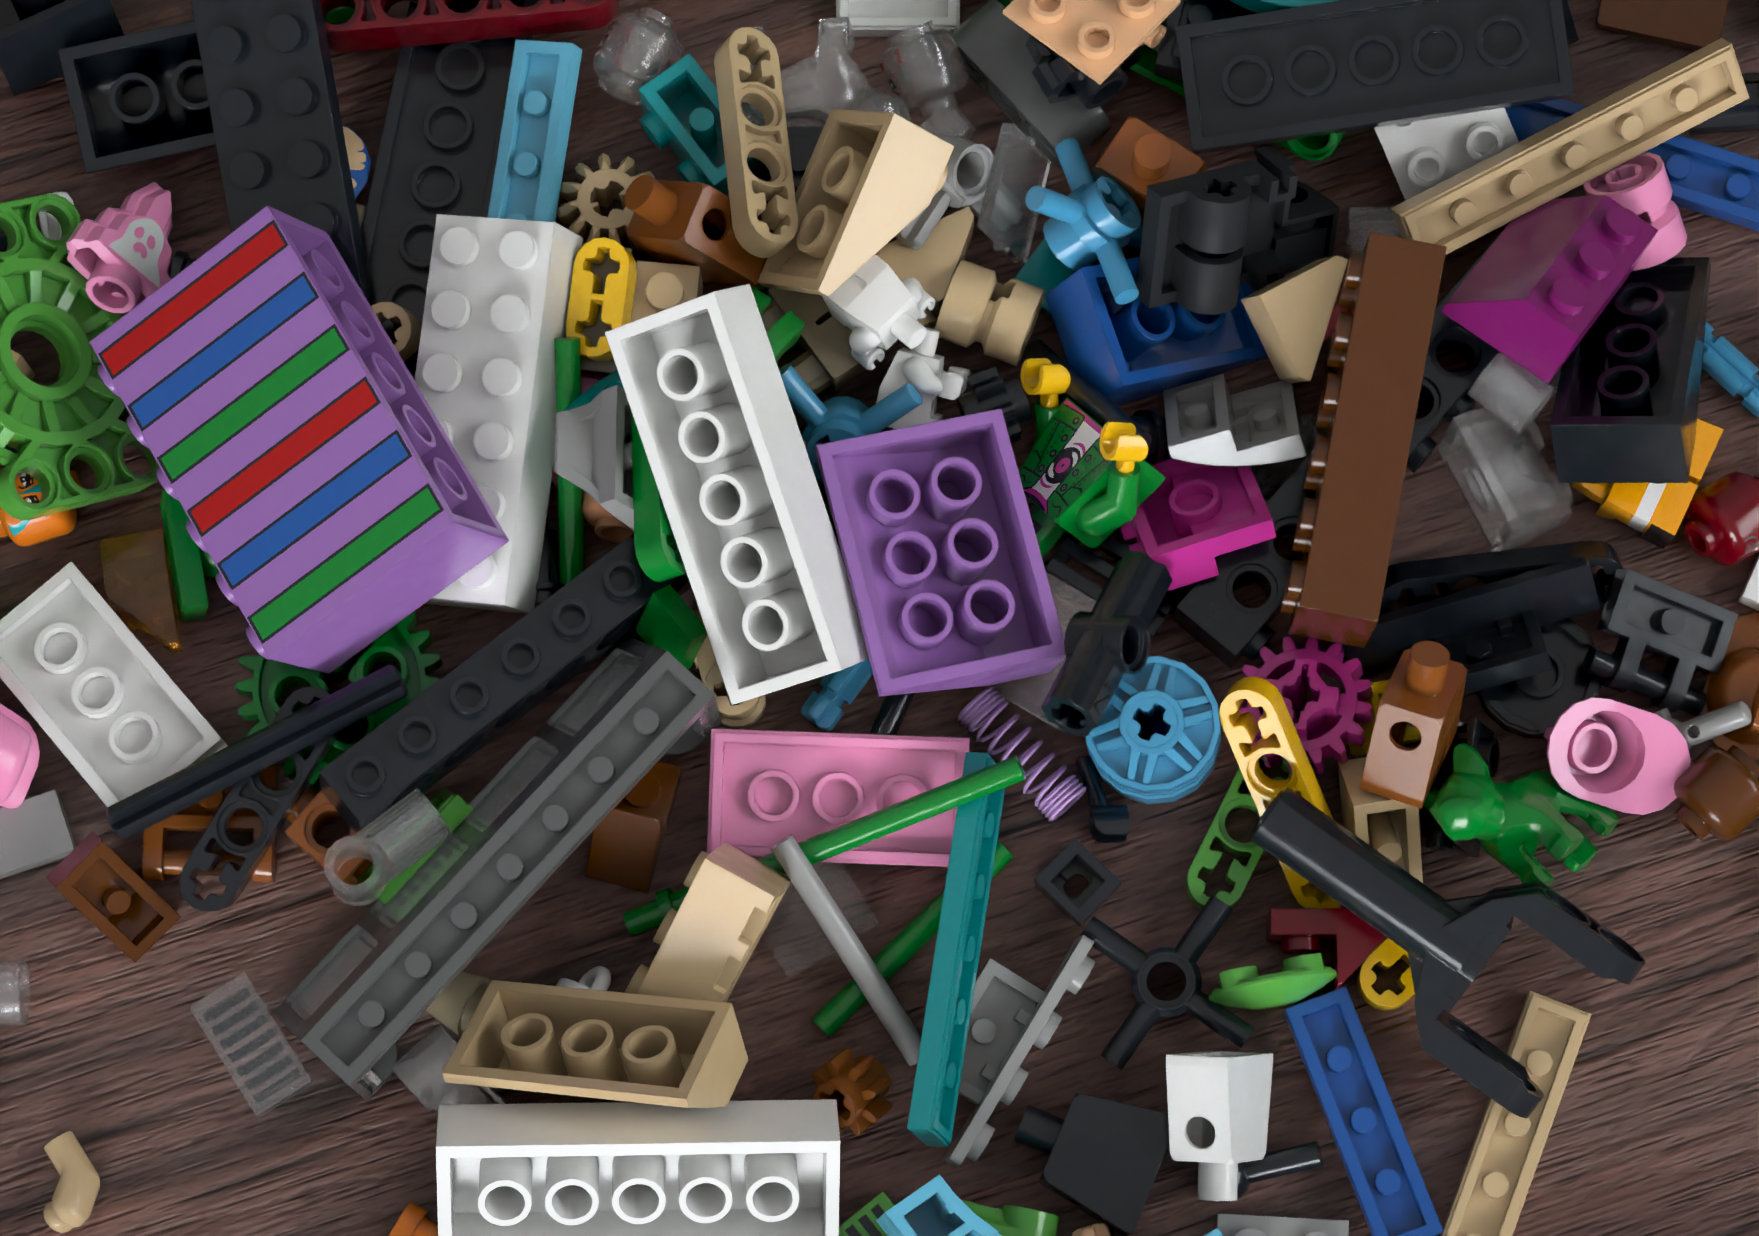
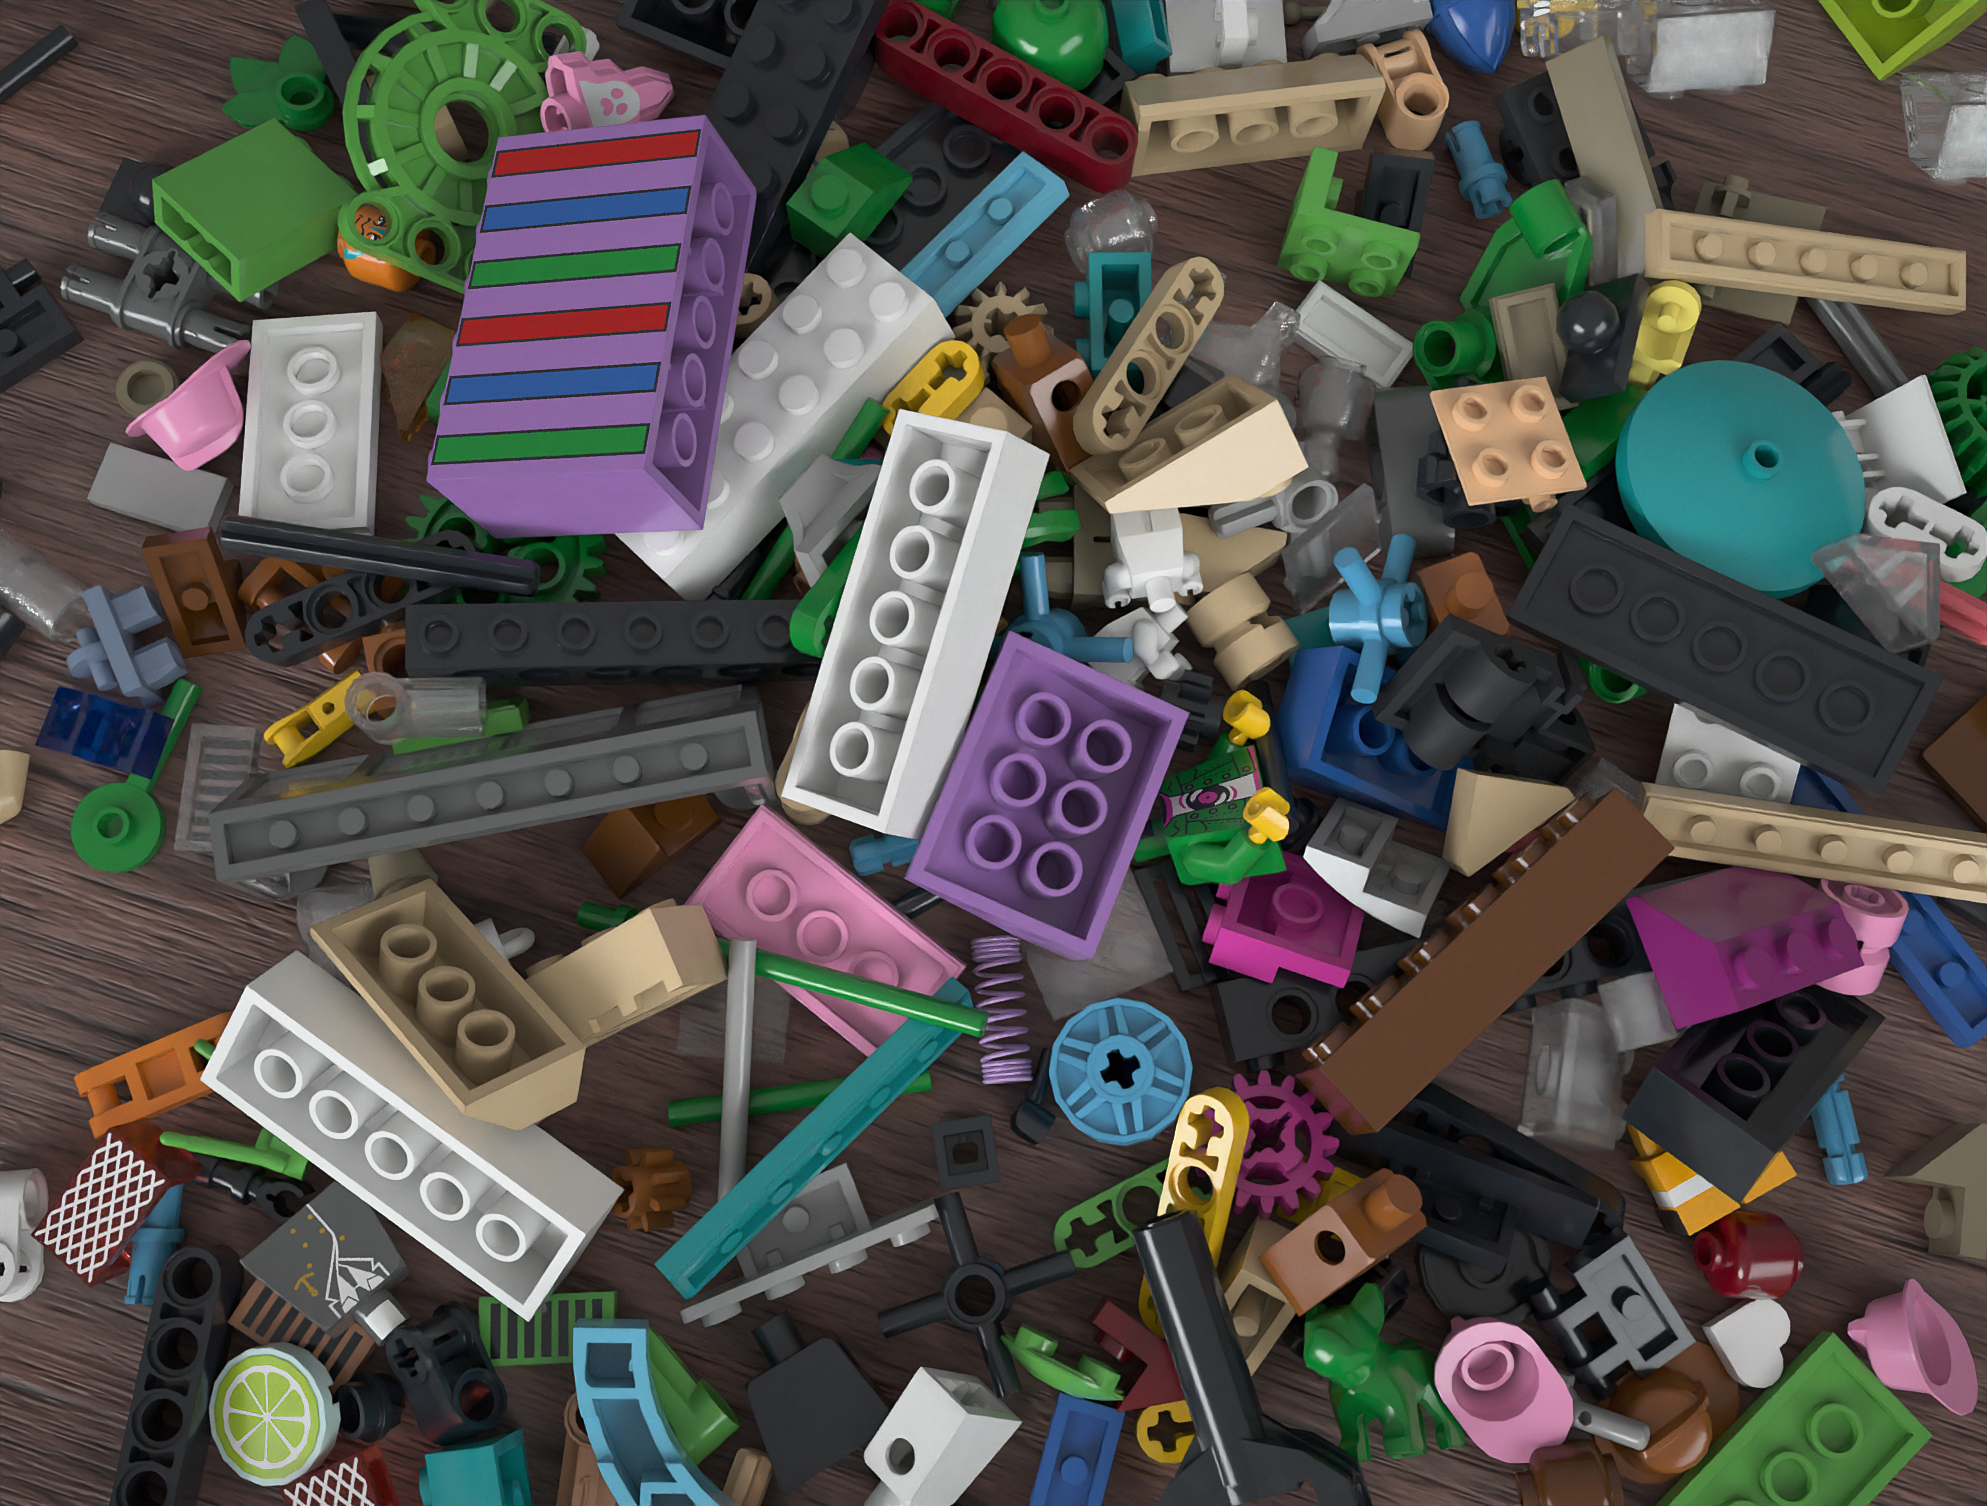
camera: 30 degrees right, 0 degrees up
(63, 962) = (137, 668): none -> sand blue hips
(122, 1066) = (105, 732): none -> clear blue slope
(191, 1130) = (123, 823): none -> green piece
(297, 914) = (329, 715): none -> yellow bar
(401, 186) = (845, 196): none -> green slope
(672, 626) = (786, 699): green tile -> none
(1106, 643) = (1130, 975): black piece -> none

